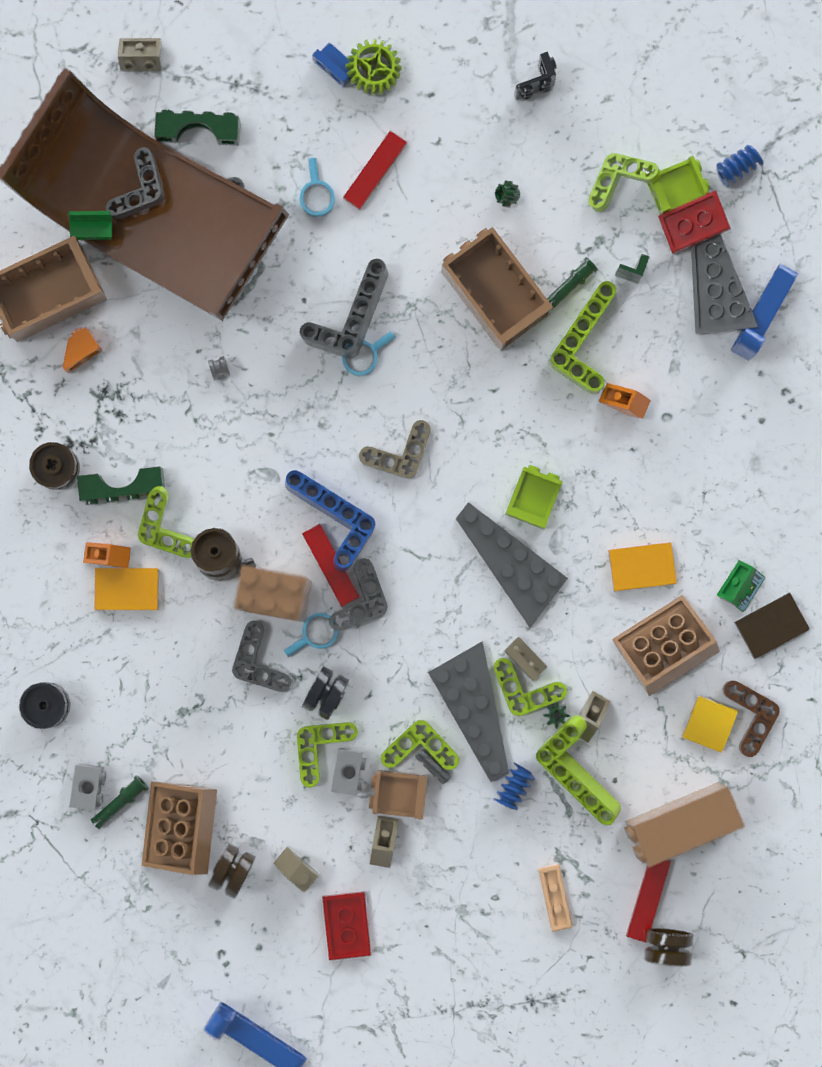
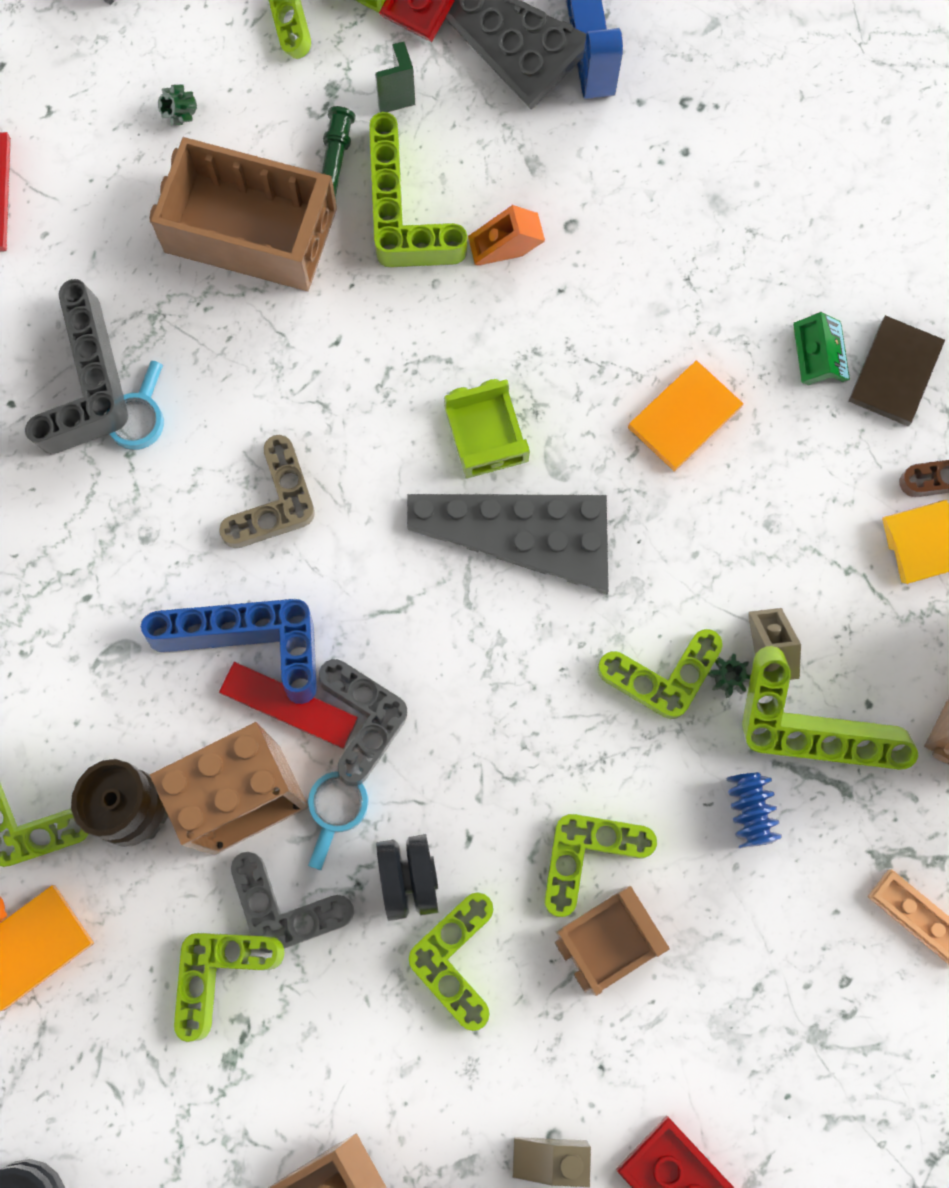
camera: 40 degrees left, 10 degrees down
(207, 660) = (212, 959): none -> lime beam
(341, 783) = (526, 986): light grey brick -> none
(384, 841) = (641, 1023): dark tan slope -> none
(432, 766) = (625, 867): dark grey axle -> none
(470, 698) = (603, 740): dark grey wing -> none
(525, 658) = (634, 635): dark tan bracket -> none
(666, 645) = (794, 485): medium nougat slope -> none

